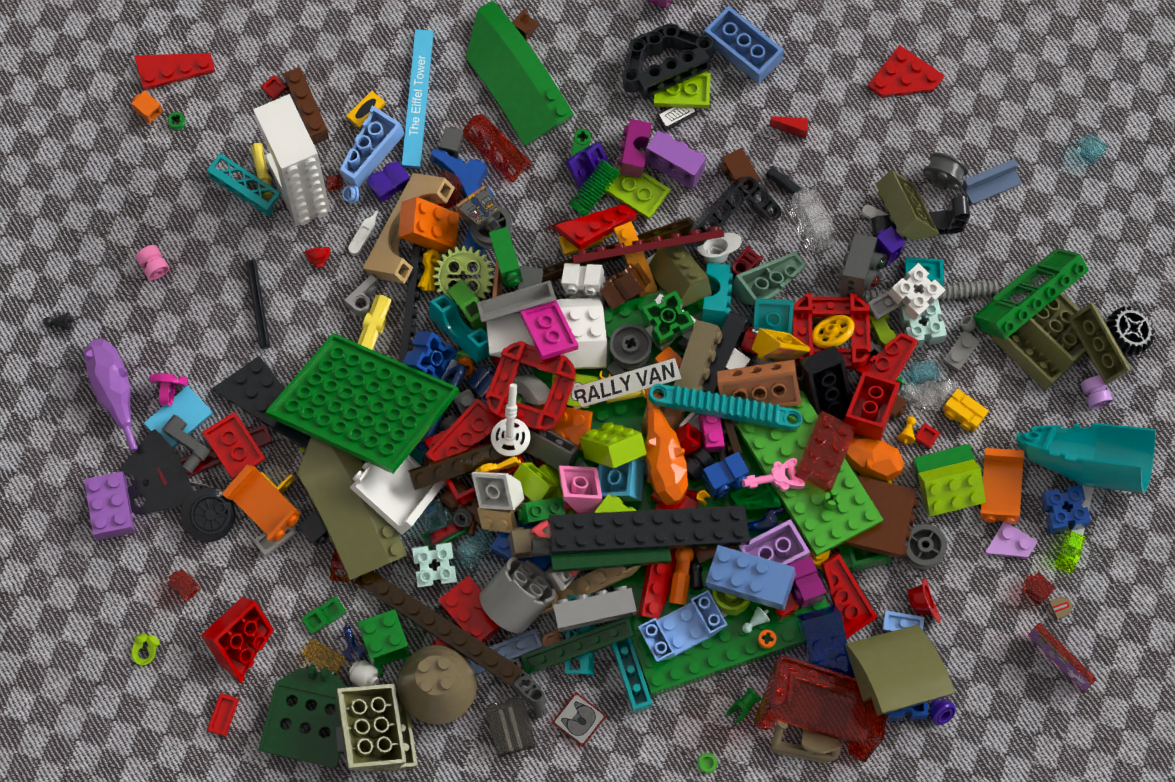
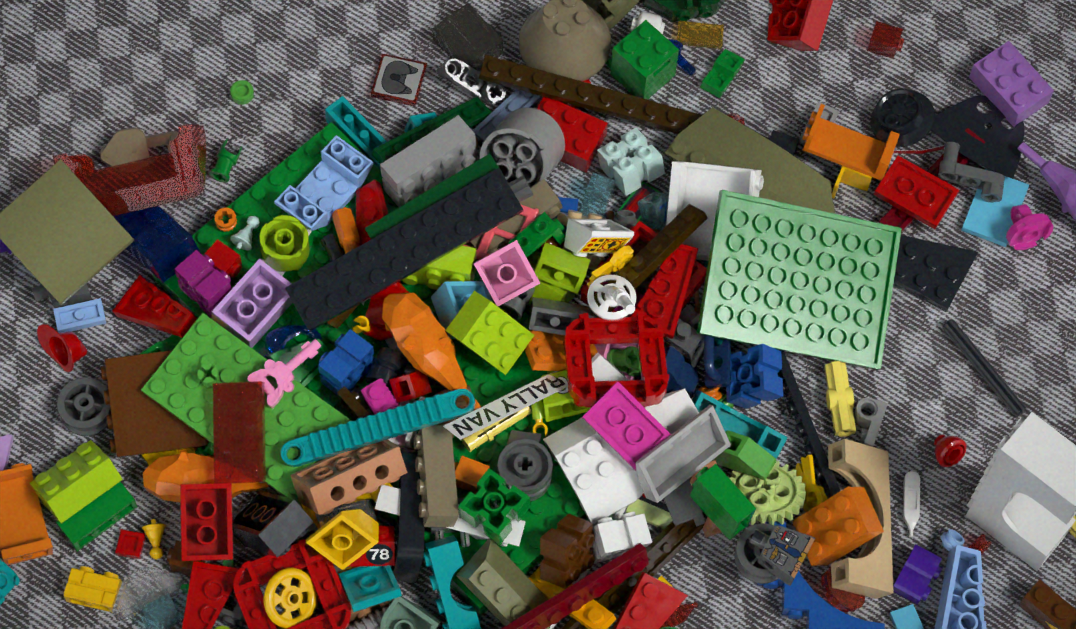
camera: 155 degrees right, 5 degrees down
(750, 577) = (266, 245): medium blue brick -> none

